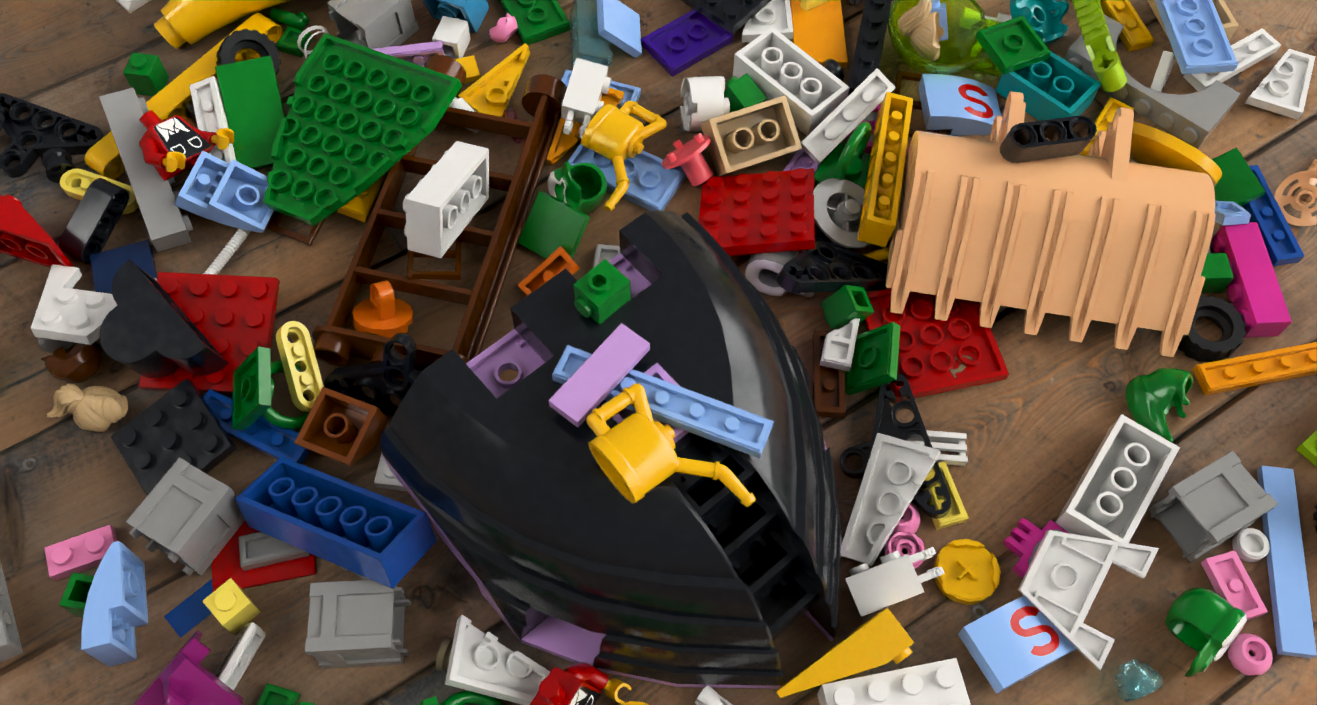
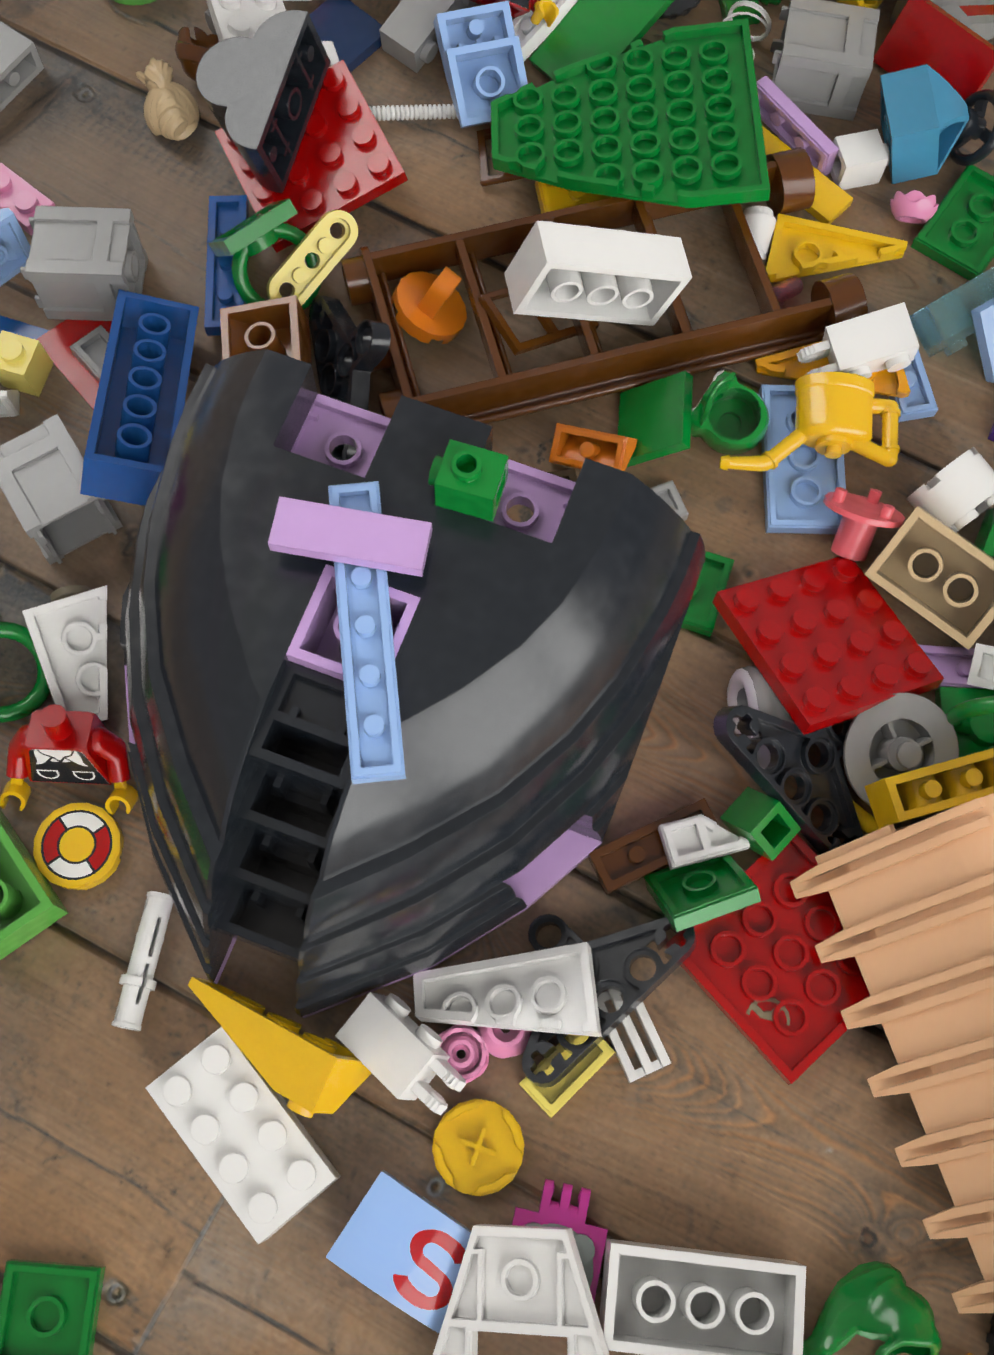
camera: 60 degrees right, 10 degrees up
(173, 428) = (176, 198): black plate -> none
(642, 453) = (273, 633): yellow piece -> none

